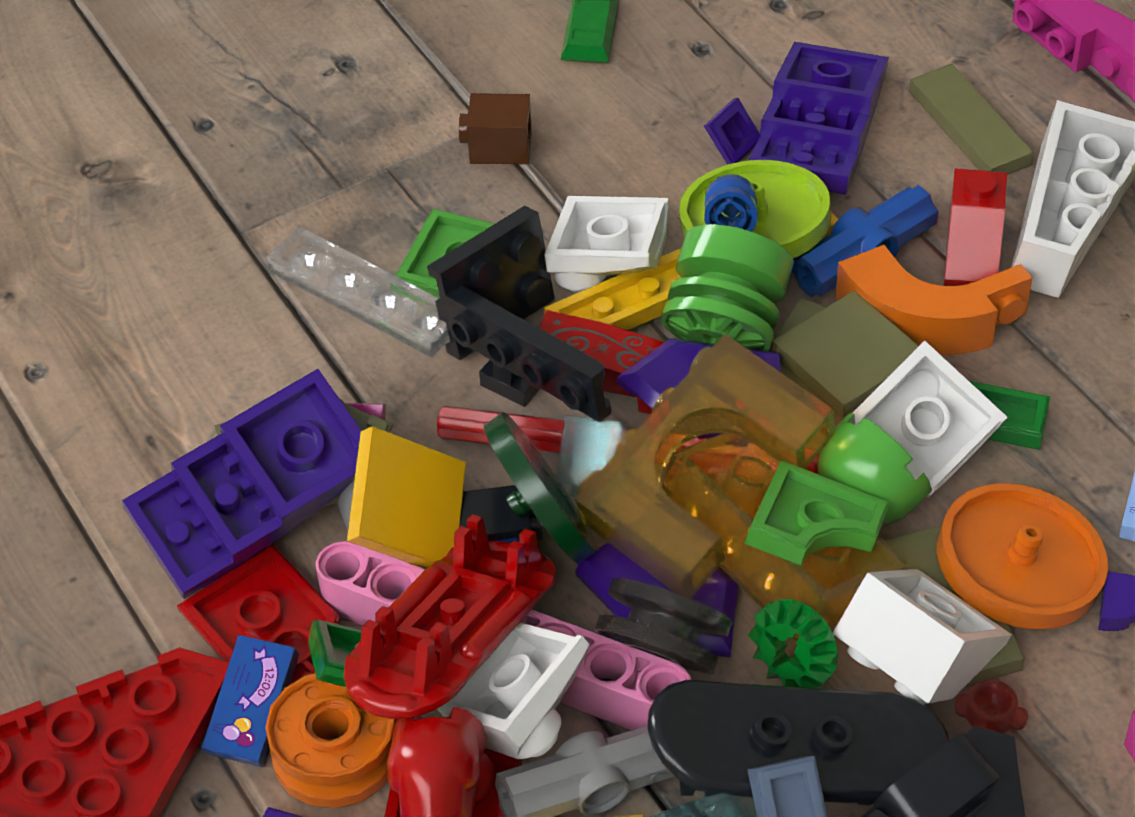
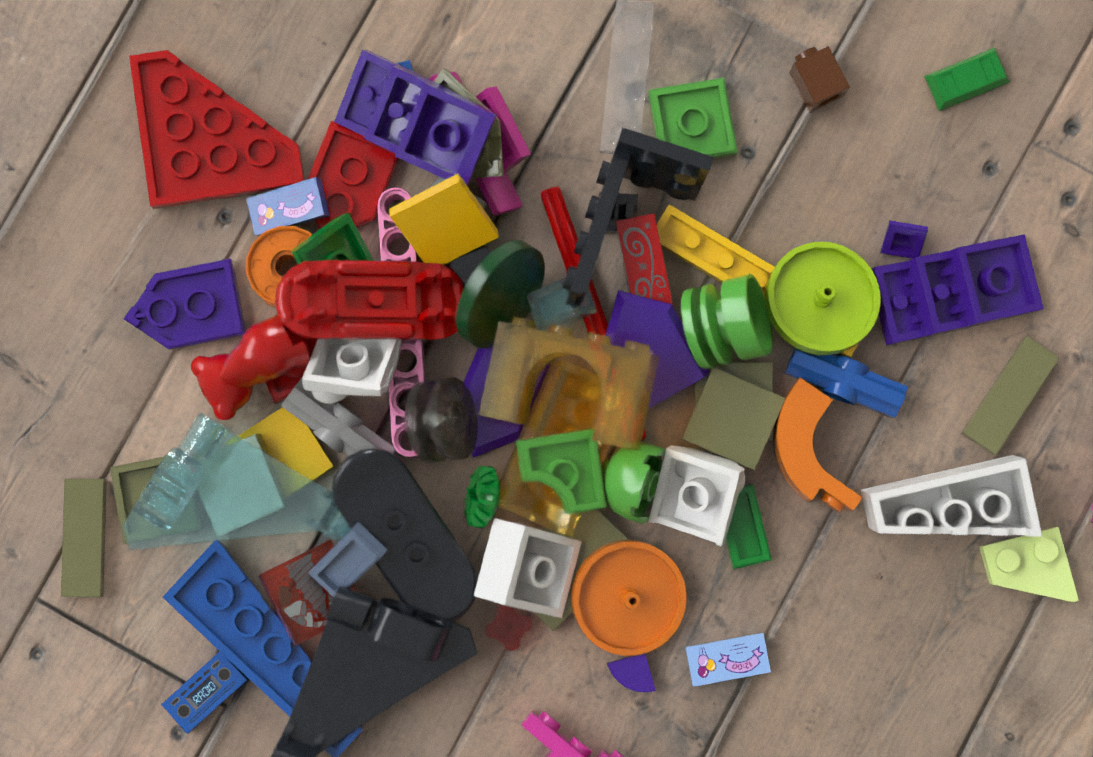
camera: 60 degrees right, 35 degrees up
(606, 238) = (744, 215): white slope -> none
(731, 195) = (793, 290): blue wheel -> none
(975, 226) = (892, 449): slope -> none

